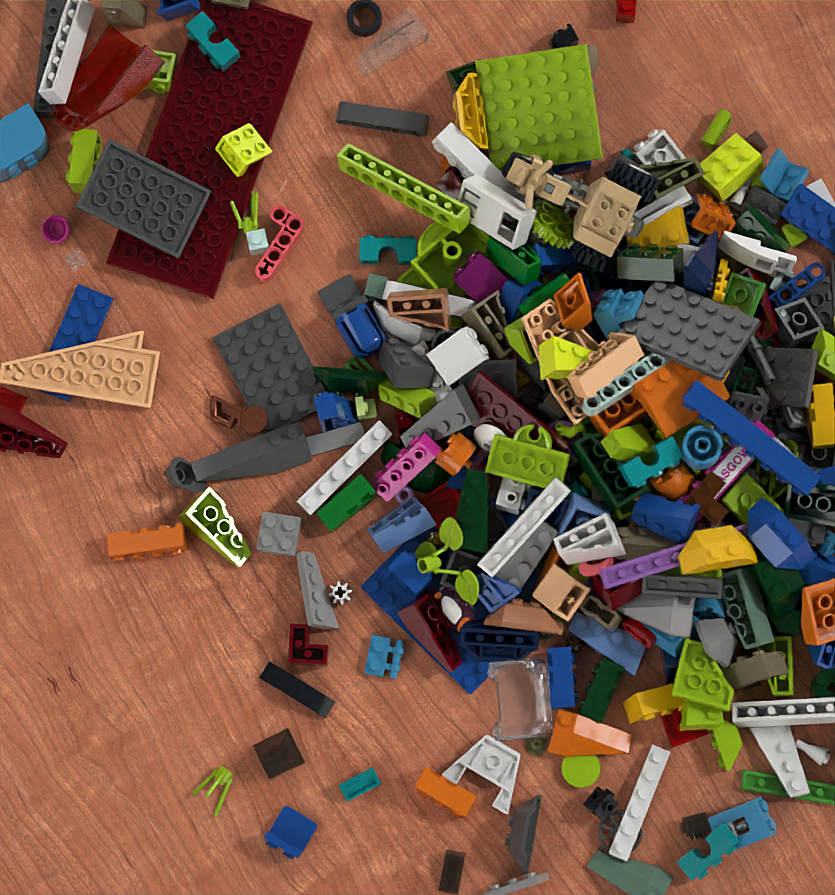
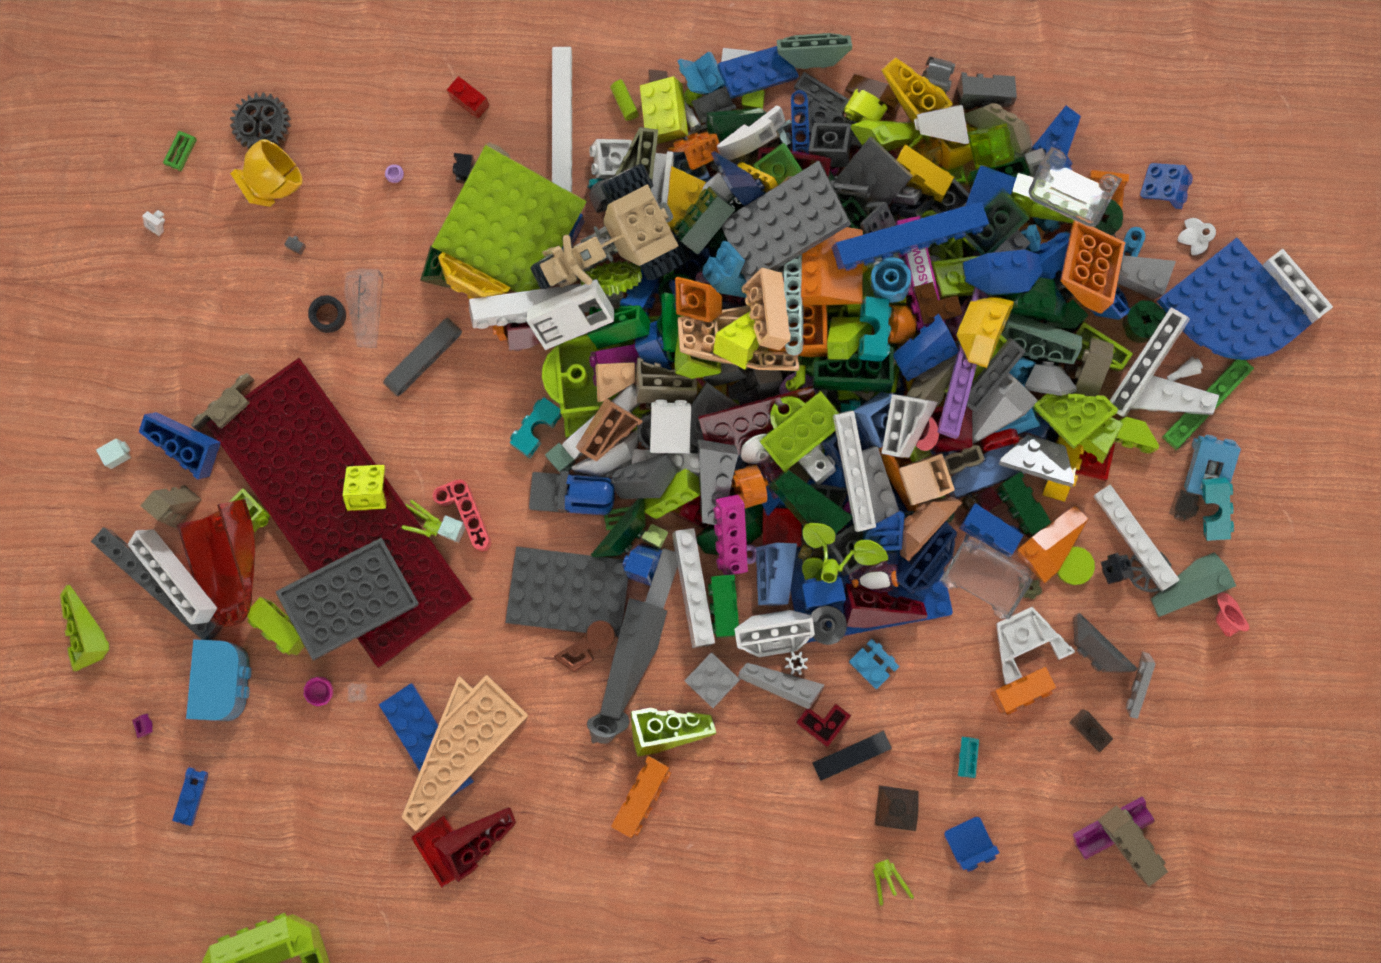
camera: 50 degrees left, 0 degrees up
(222, 54) = (272, 450): teal arch -> none
(352, 558) = (774, 633): none -> white wedge
(380, 596) = (826, 634): none -> dark grey dish
(404, 188) = (495, 376): lime brick -> none
(468, 283) = (613, 378): none -> light nougat wing
(586, 659) = (988, 499): none -> dark red tile
(645, 675) = (1040, 459): none -> wing
(662, 90) = (562, 117): none -> white beam

